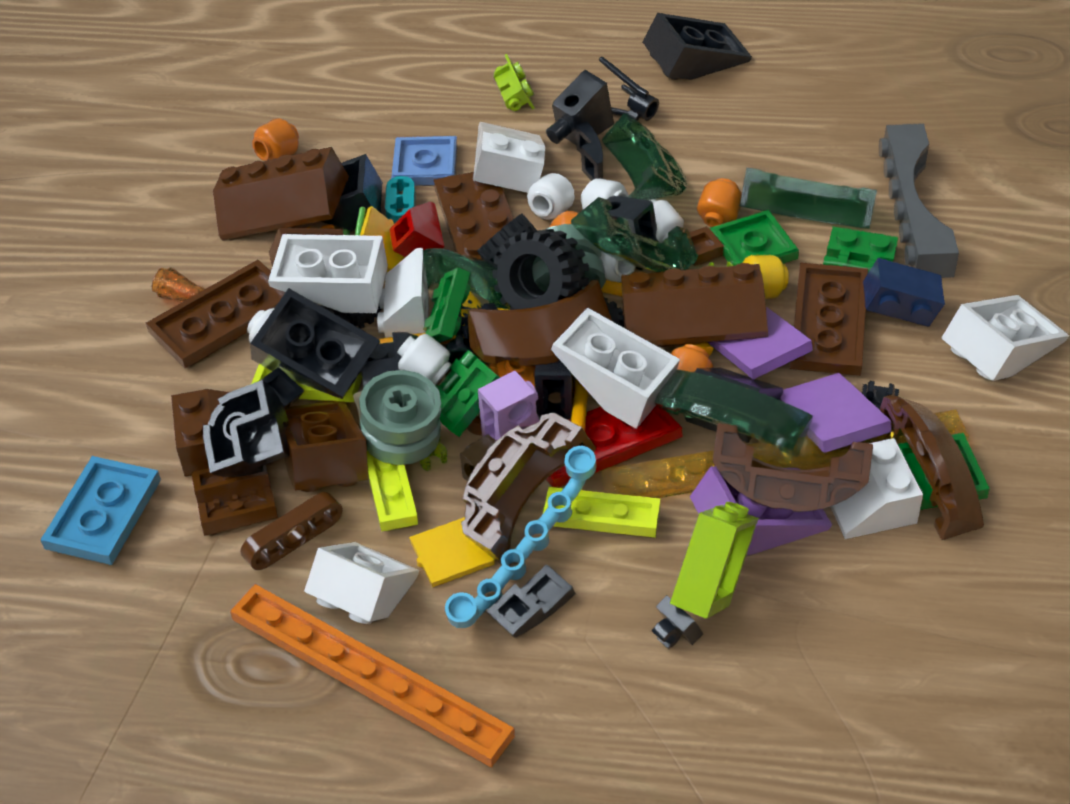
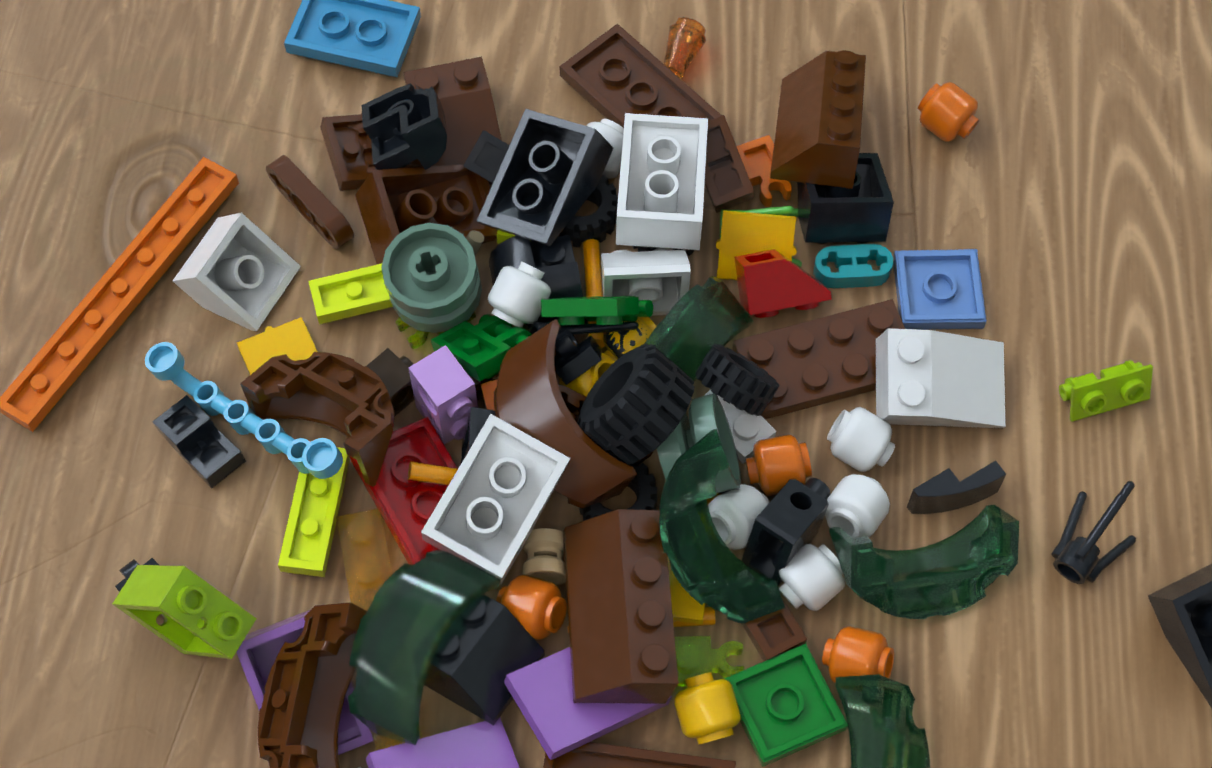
camera: 85 degrees right, 15 degrees up
(581, 101) = (1038, 469): black torso -> none

